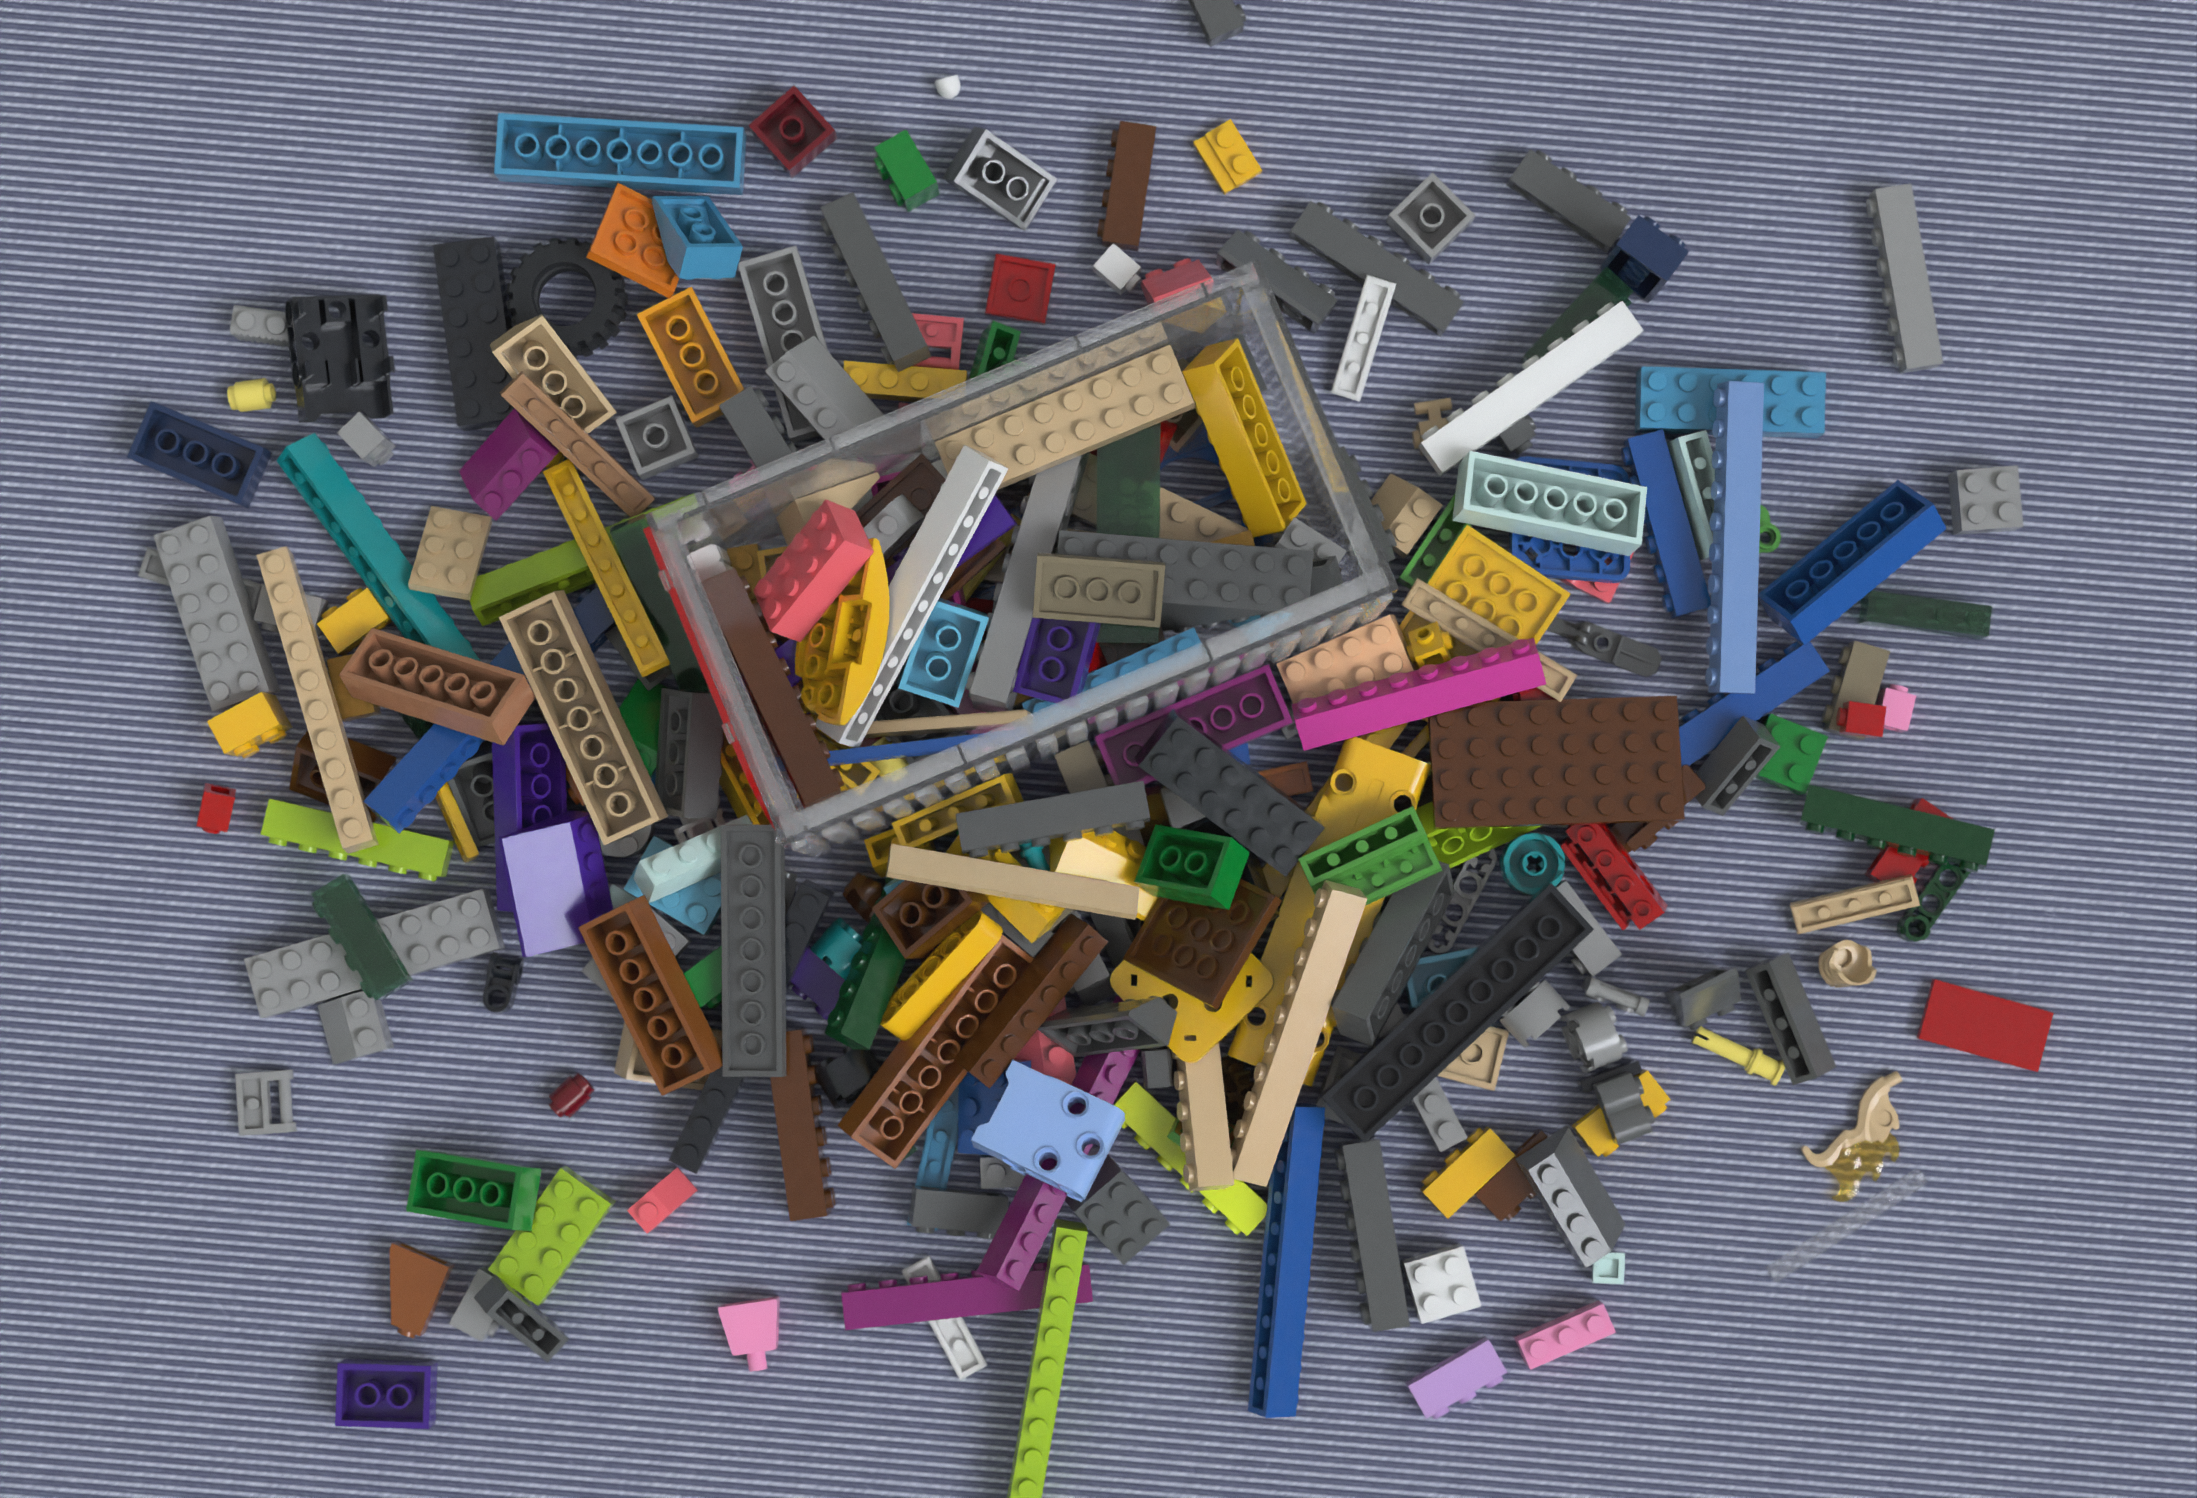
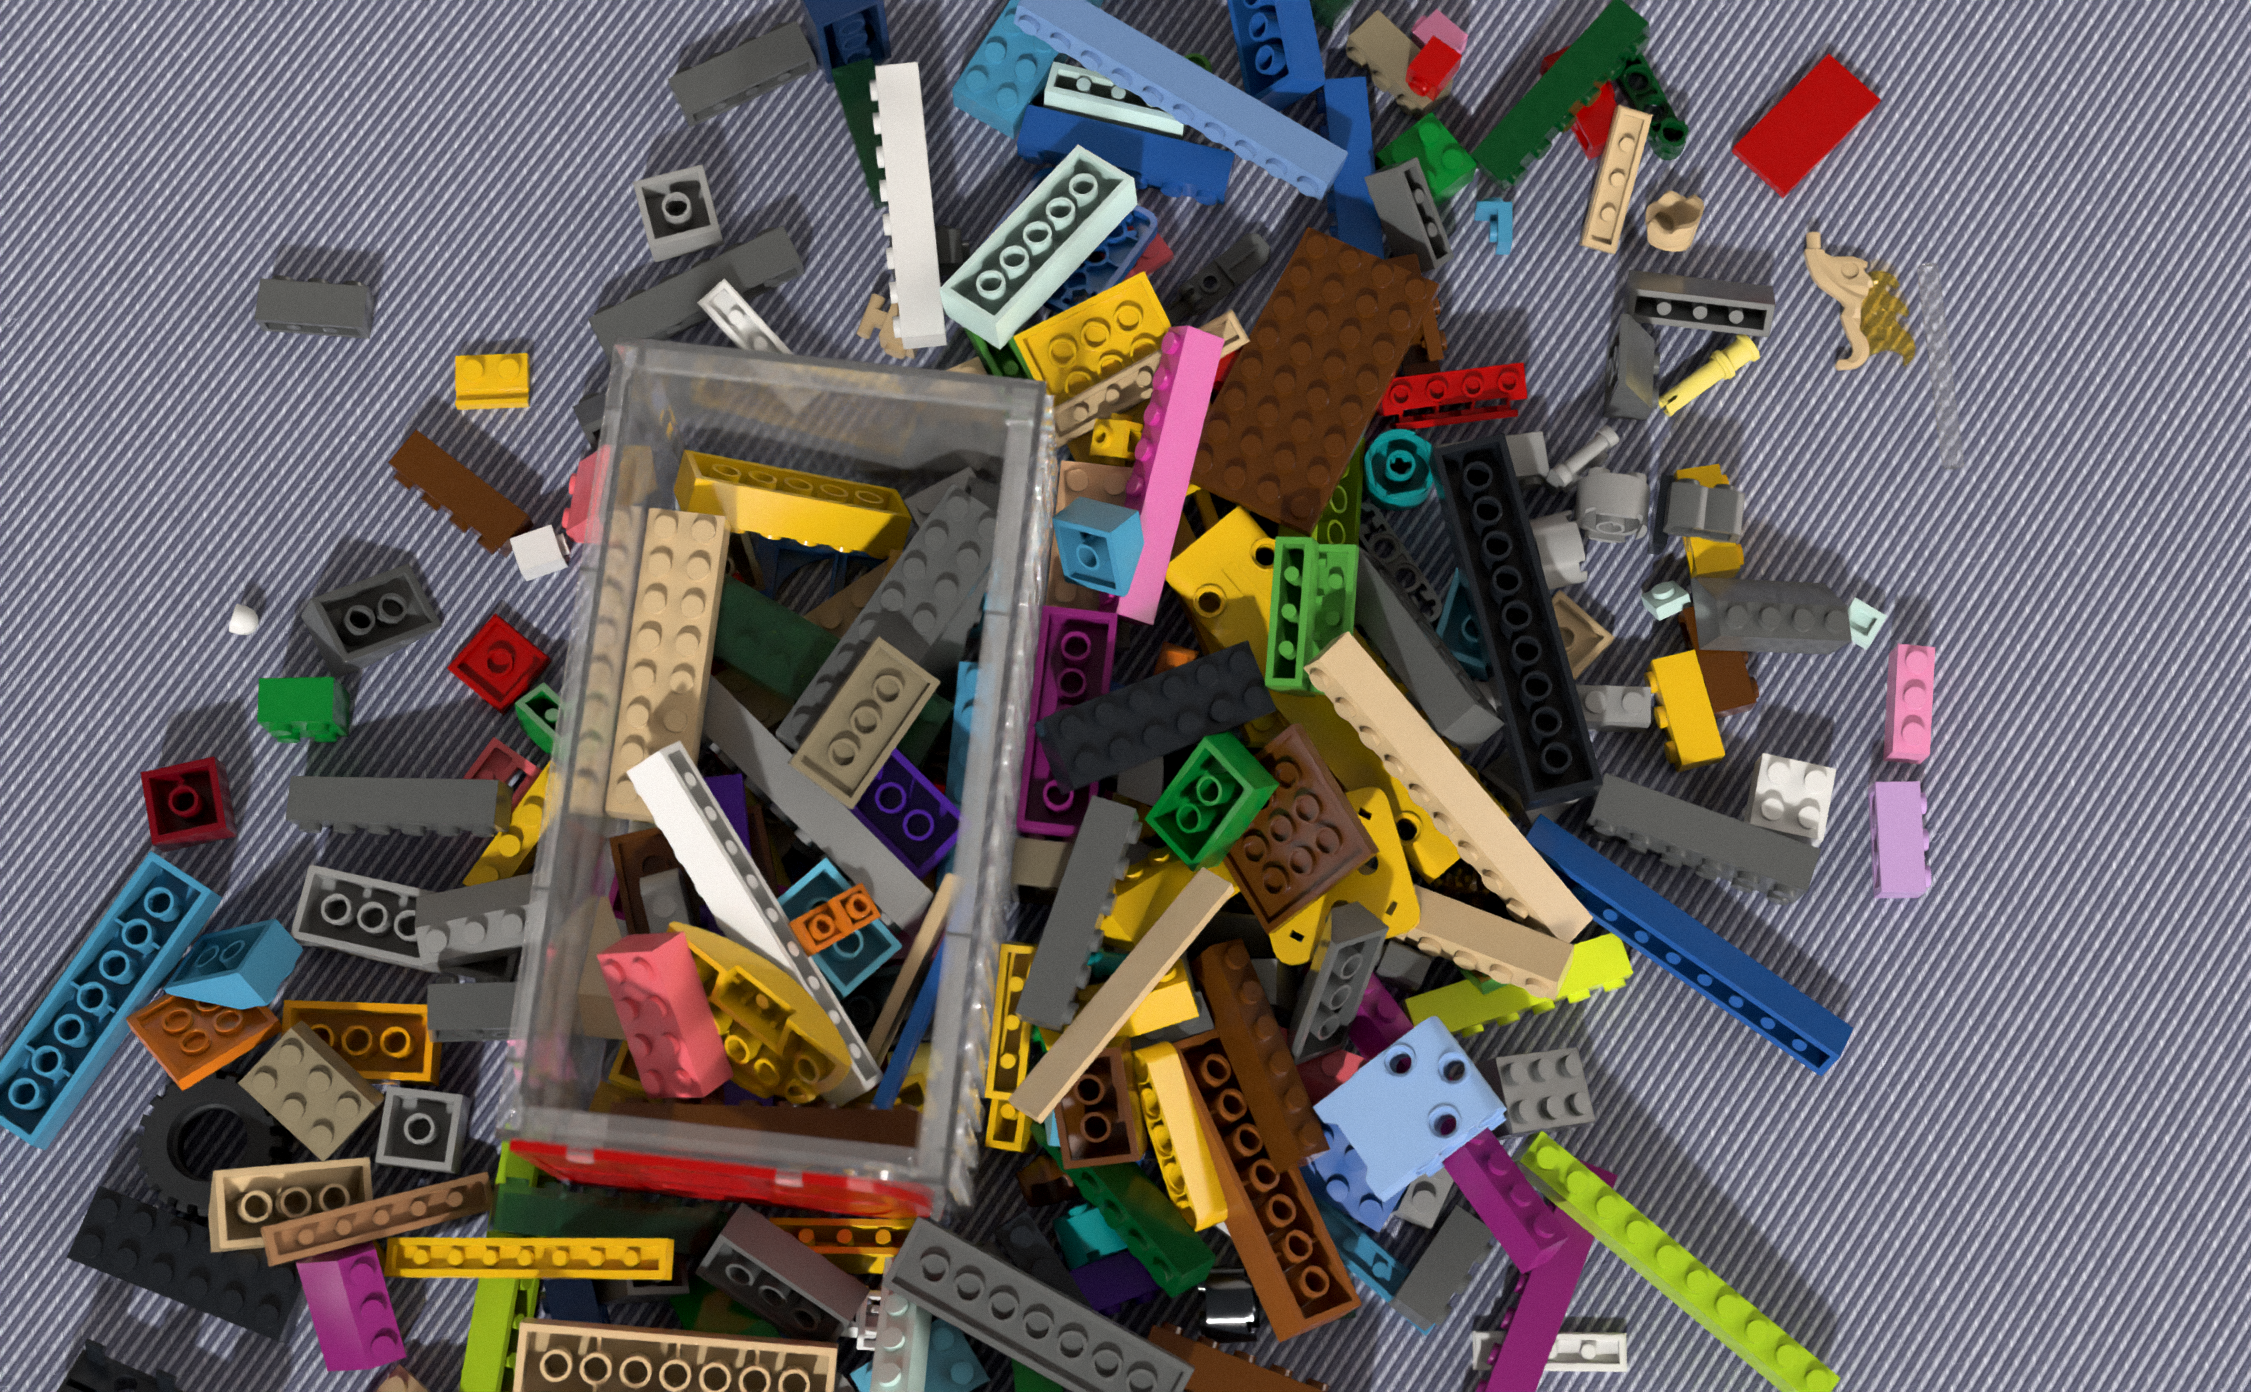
camera: 60 degrees left, 10 degrees down
(637, 346) = (312, 1090): none -> dark tan brick
(947, 650) = (835, 919): none -> orange slope
(1337, 679) = (1099, 544): none -> dark azure slope
(1544, 1114) = (1666, 599): none -> light aqua plate
(1766, 837) = (1500, 222): none -> dark azure bracket

